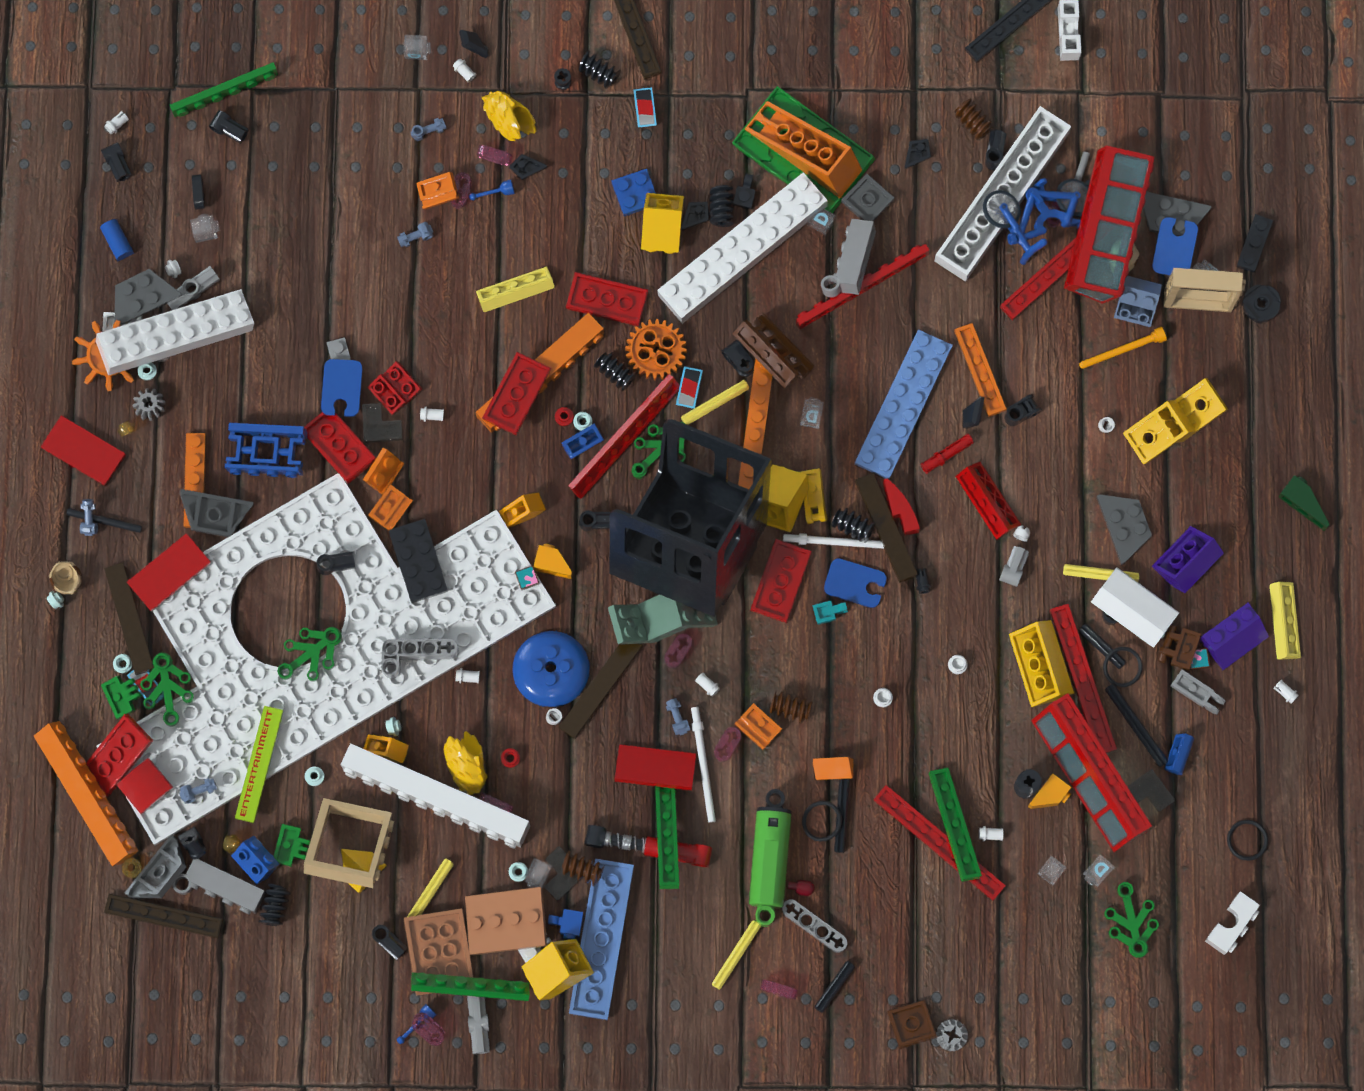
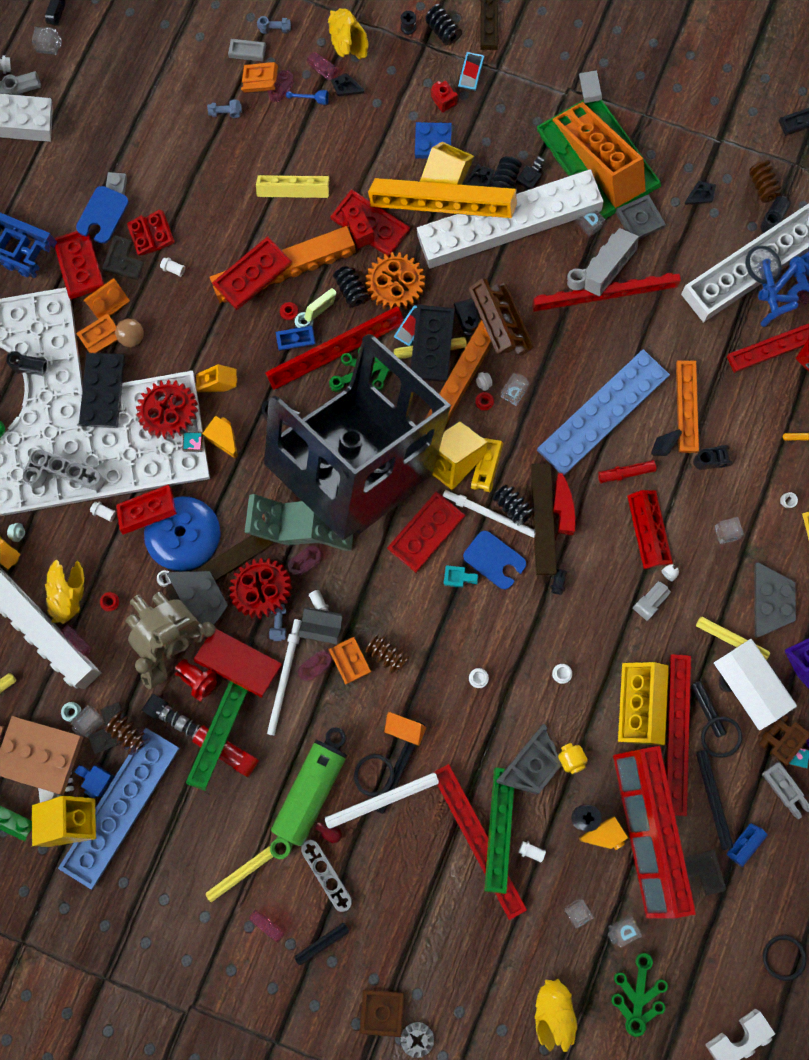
camera: 25 degrees right, 0 degrees up
(410, 164) = (247, 50): none -> light grey tile
(418, 495) = (129, 332): none -> medium nougat hair
(472, 558) = (151, 405): none -> red gear
(510, 658) = (146, 509): none -> red plate
(578, 767) = (162, 635): none -> dark tan piece
(594, 400) = (320, 305): none -> yellowish green tile
(595, 722) = (199, 594): none -> dark grey wing
(598, 307) = (358, 224): none -> red brick
(623, 796) = (200, 682): none -> red piece
(629, 149) = (443, 95): none -> red brick
(634, 702) = (243, 593): none -> red gear
(671, 252) = (443, 198): none -> light orange brick
(717, 398) = (432, 342): none -> black plate
(718, 704) = (321, 625): none -> dark grey panel
(769, 82) = (590, 86): none -> light grey tile
(779, 416) = (484, 381): none -> white plate
(787, 429) = (484, 396): none -> red plate
(835, 842) = (381, 800): none -> white axle
(962, 756) = (533, 764): none -> dark grey wing
(996, 737) = (573, 758): none -> yellow head
(1061, 474) = (729, 530): none -> clear brick
(1064, 964) = (555, 1016): none -> yellow head

